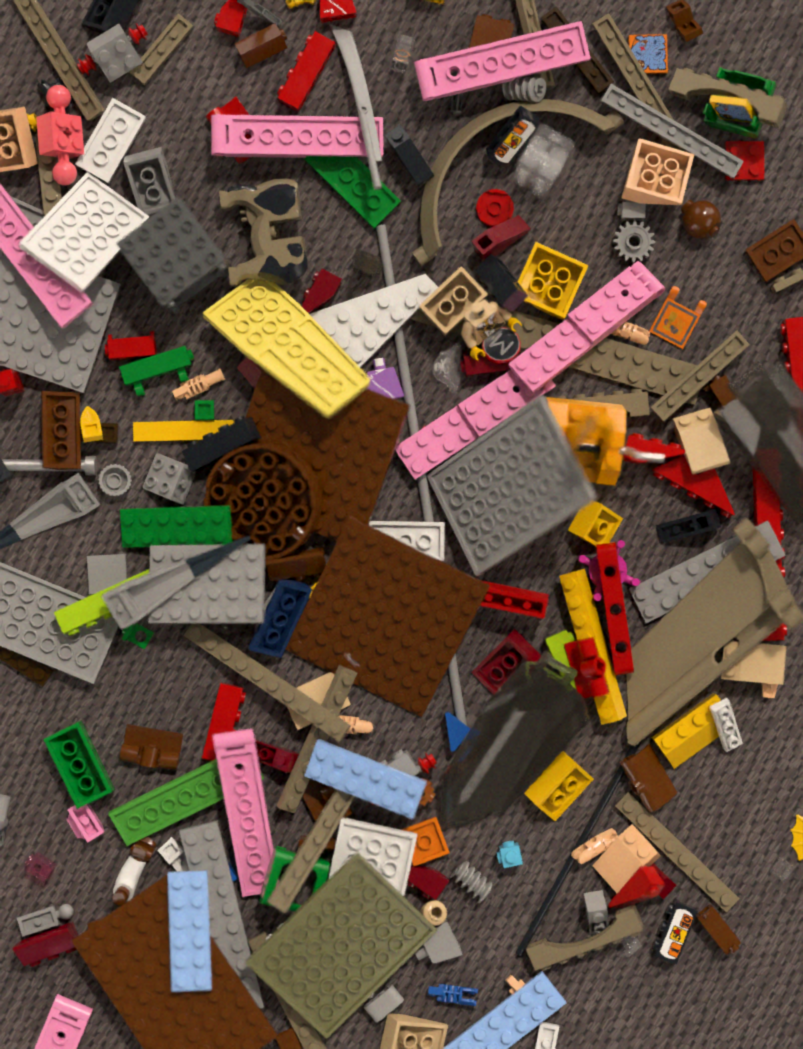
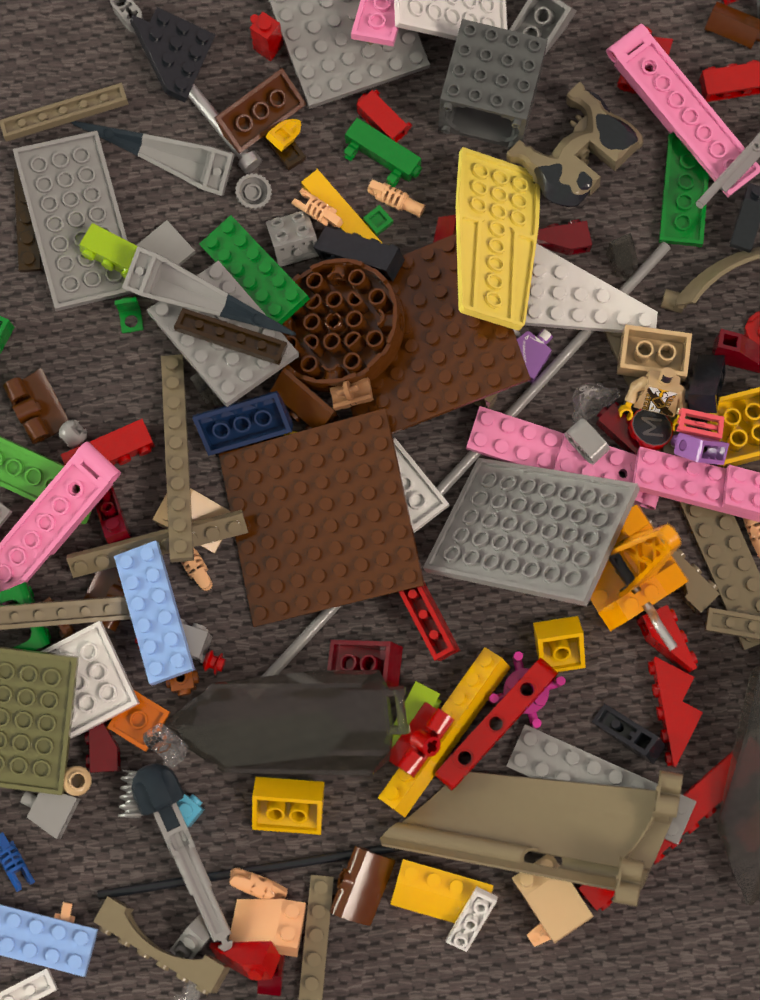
camera: 50 degrees right, 10 degrees down
(164, 446) = (318, 209): none -> light nougat hinge
(192, 737) = (72, 433): none -> light grey piece
(217, 582) = (230, 336): none -> dark brown plate
(321, 530) = (351, 394): none -> medium nougat hips
(456, 730) = (265, 665): blue slope -> none
(457, 835) = (165, 744): none -> clear leg
(477, 397) = (587, 441): none -> light grey beam
(487, 867) = (157, 792): none -> piece
(514, 322) = (698, 432): none -> coral tile
(542, 325) = (692, 448): none -> medium lavender torso
(701, 440) = (717, 678): tan slope -> none

